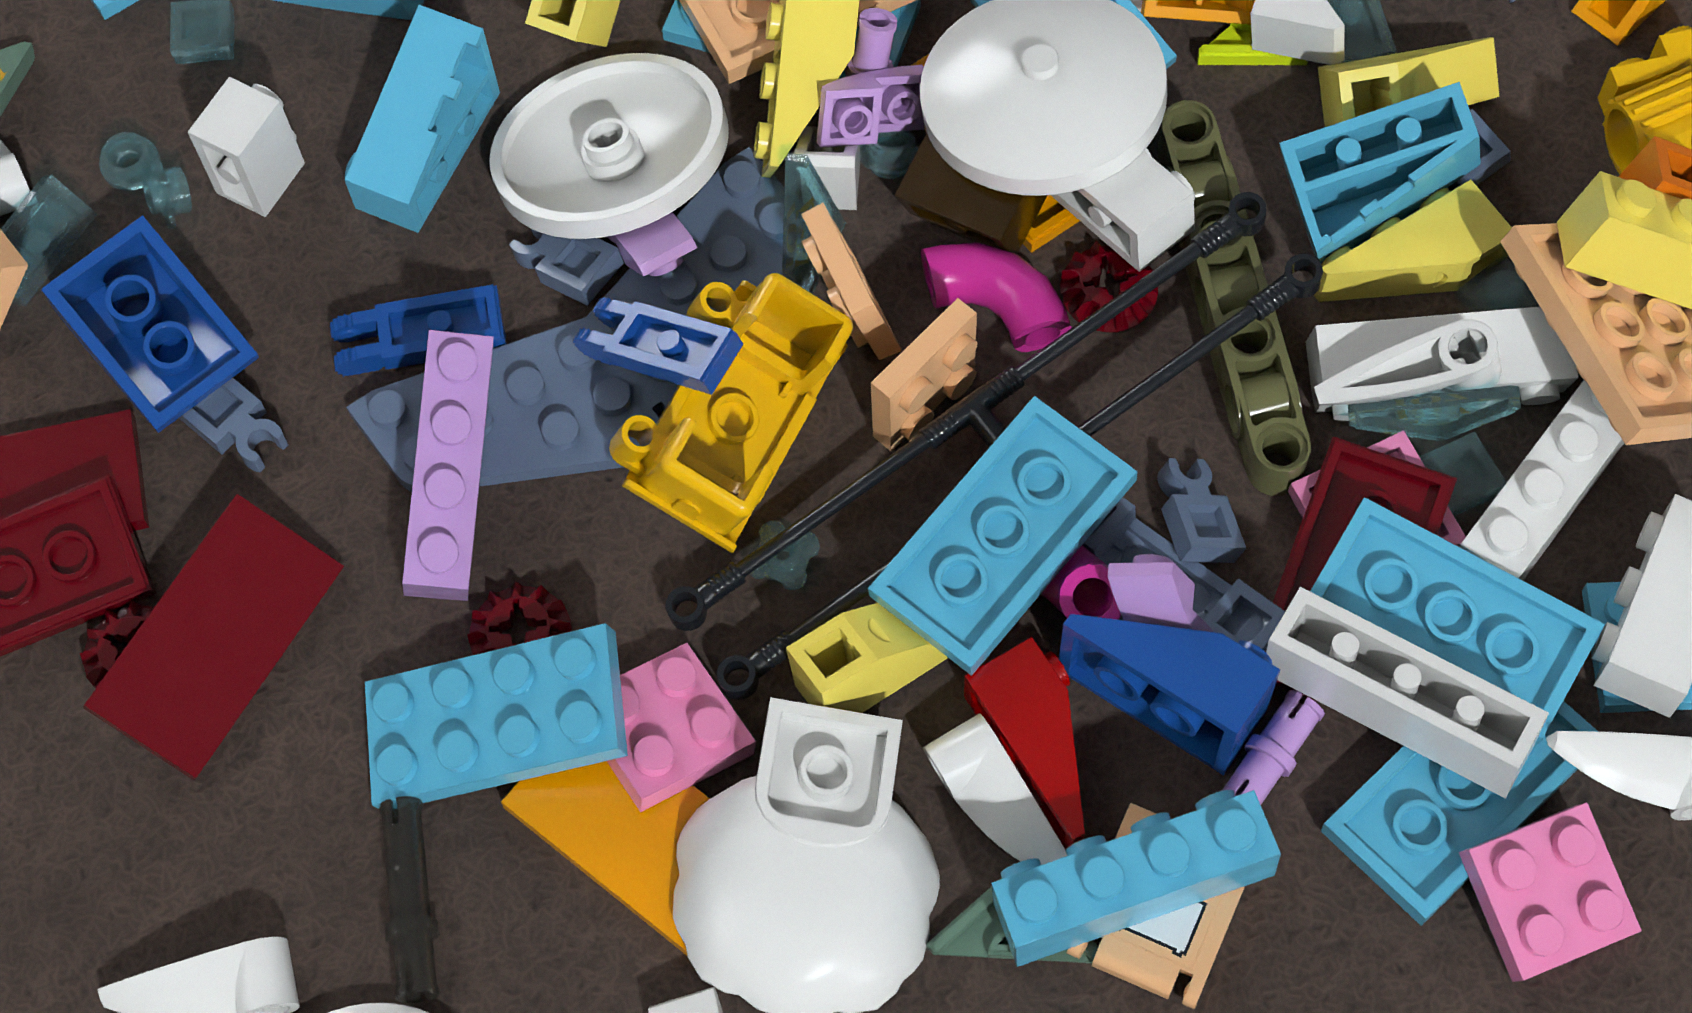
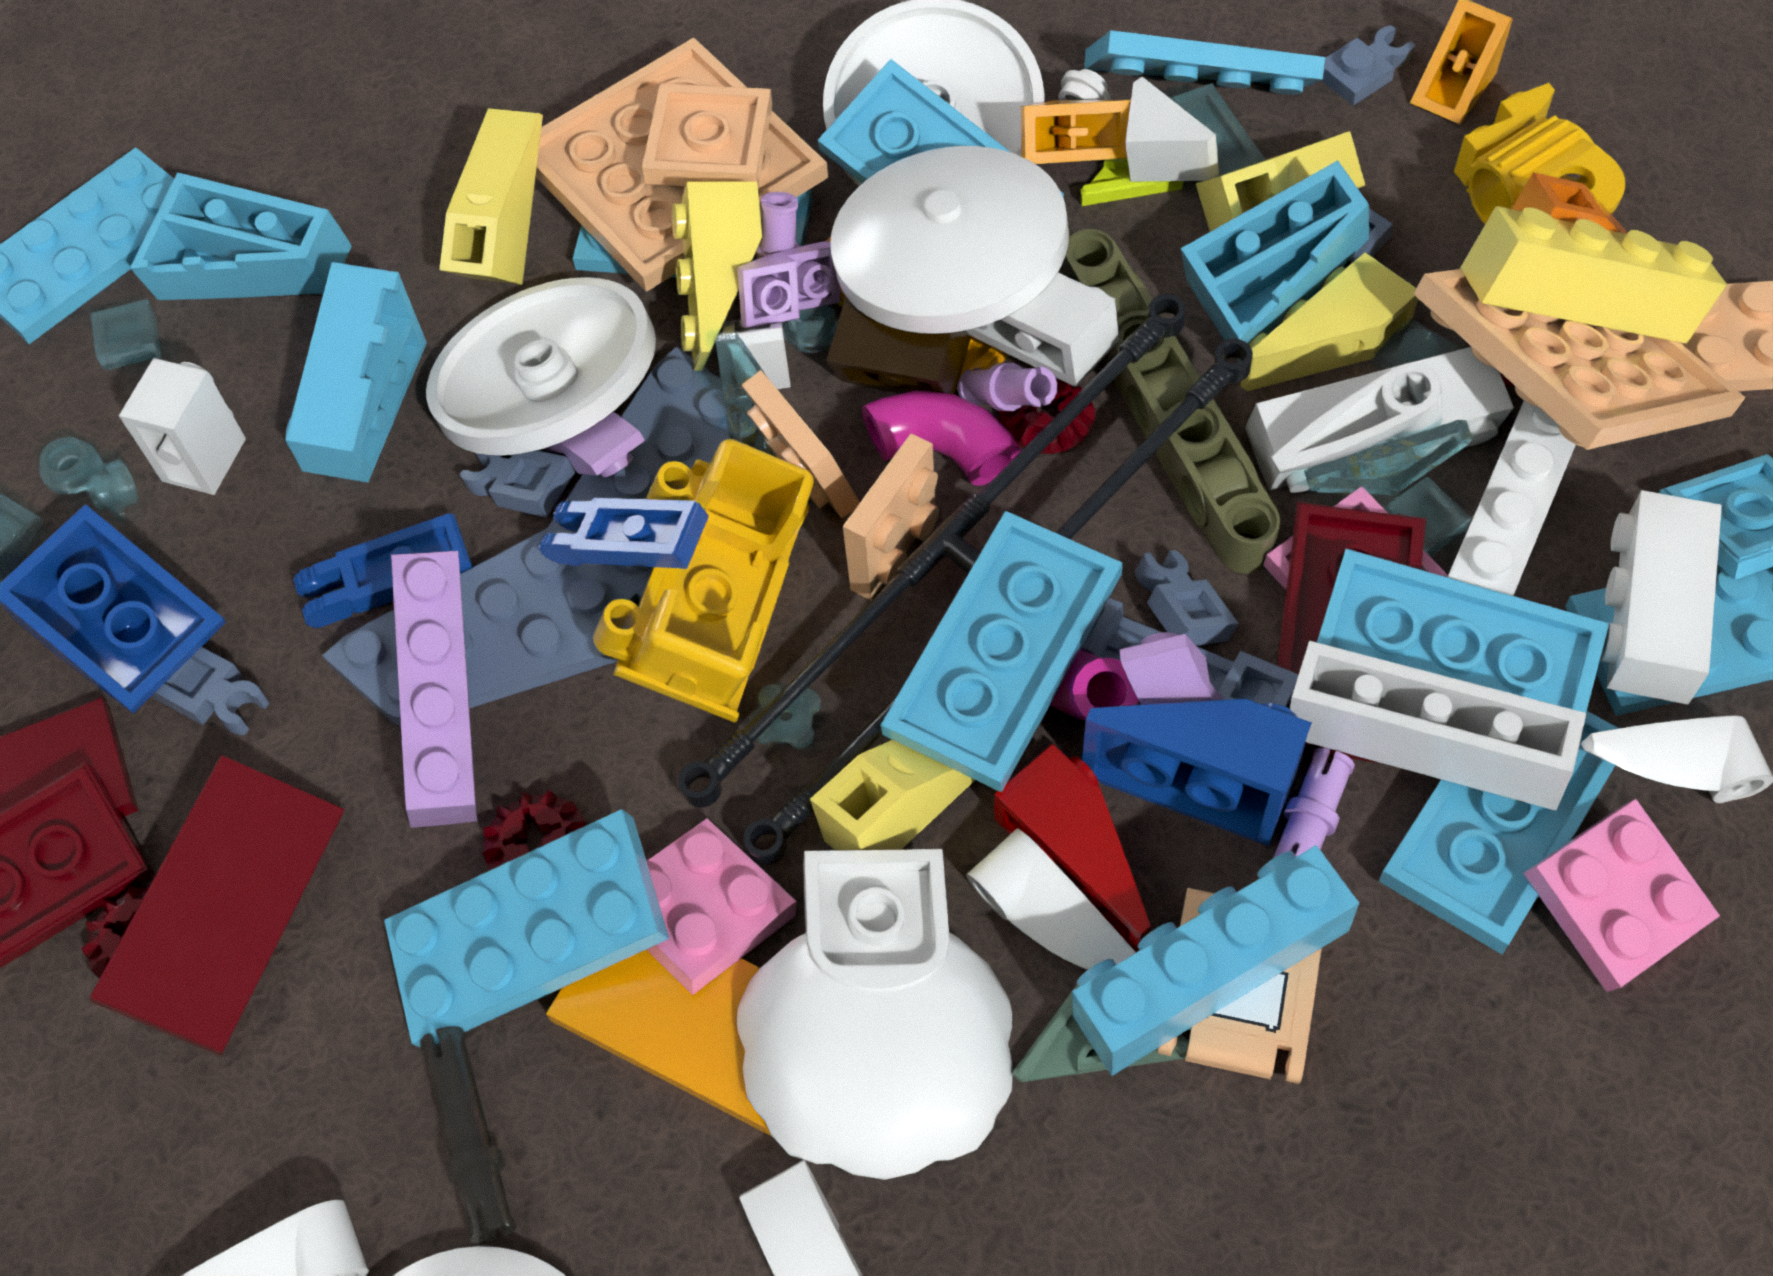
camera: 10 degrees left, 5 degrees down
(1070, 258) = (1008, 386): none -> lavender pin

